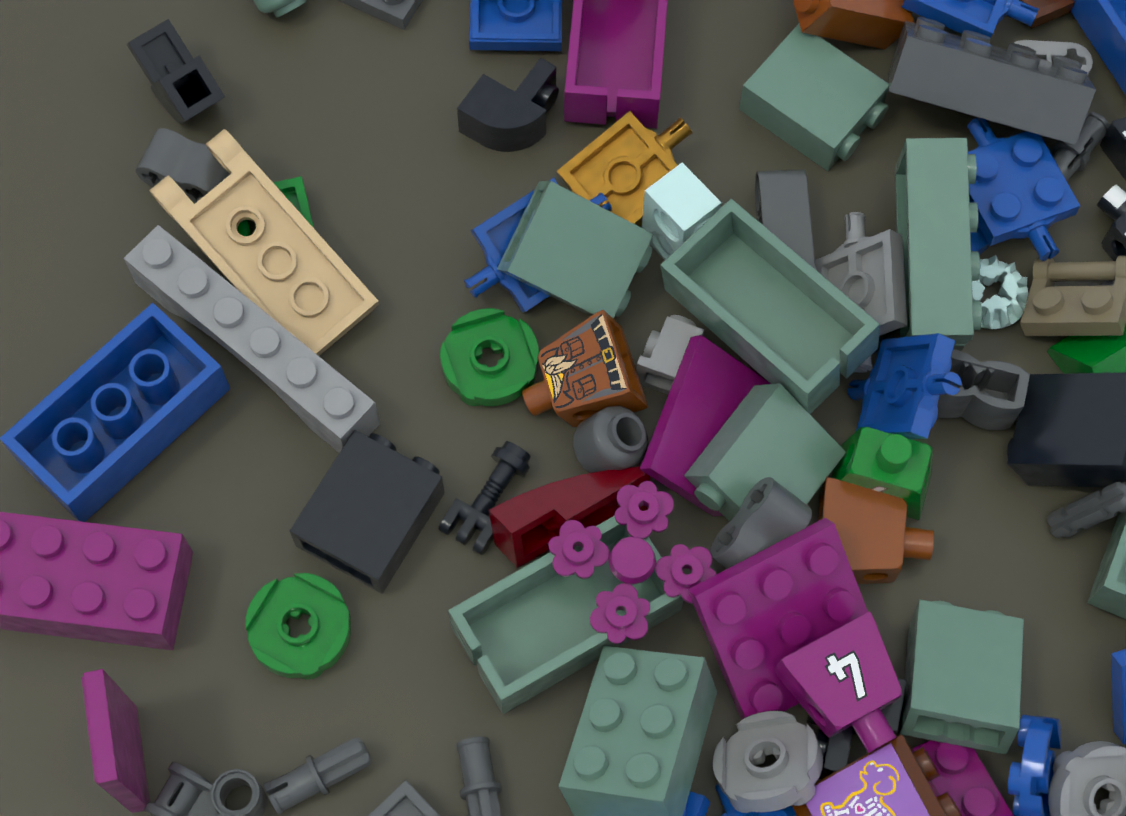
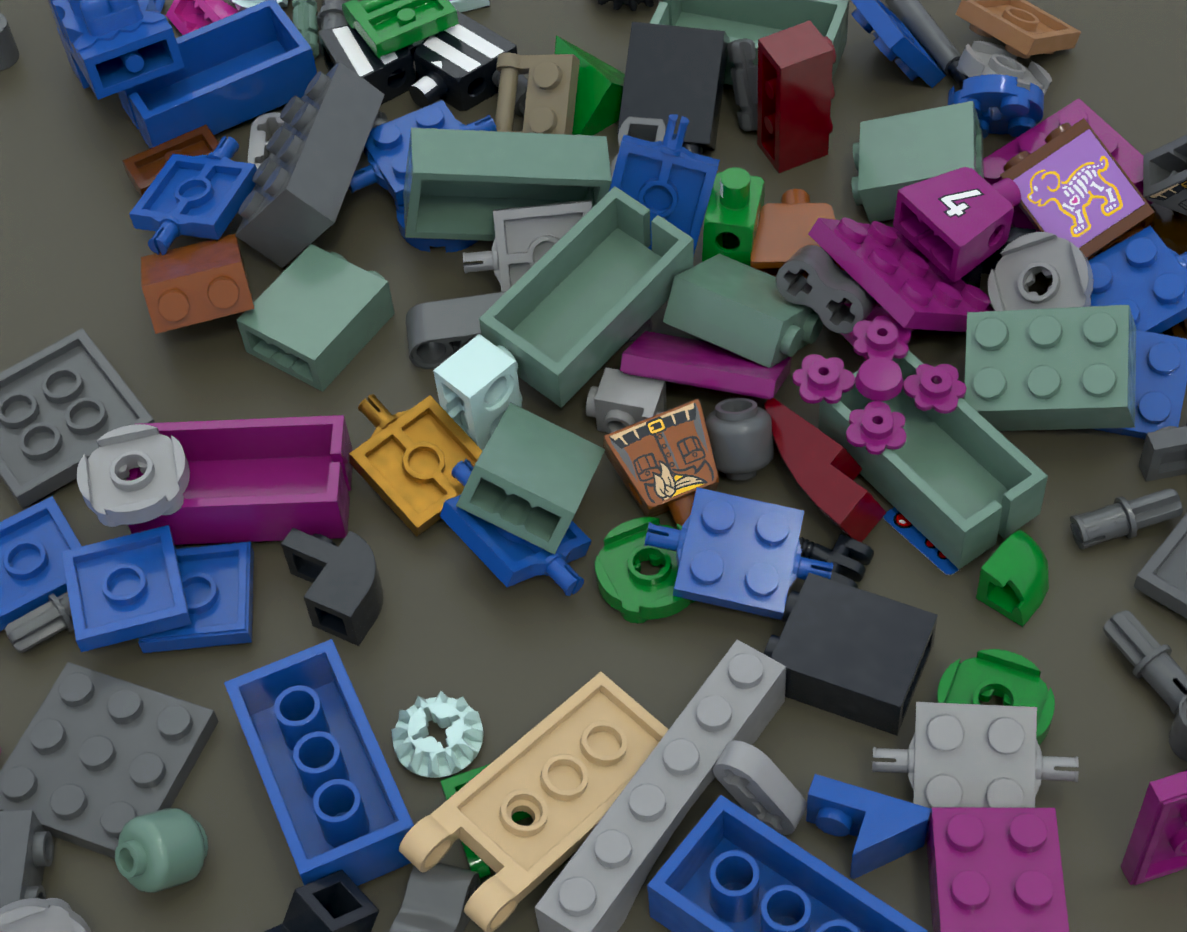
camera: 90 degrees left, 15 degrees down
(200, 505) = (882, 823): none -> blue slope
(233, 590) = (975, 757): none -> light grey plate
(239, 409) = (760, 786): none -> light grey beam
(322, 87) = (322, 766): none -> blue brick
(345, 199) = (426, 755): none -> light aqua gear
(432, 676) = (1015, 578): none -> green brick
(476, 422) = (738, 553): none -> plate
(1044, 541) = (795, 95): none -> dark red brick

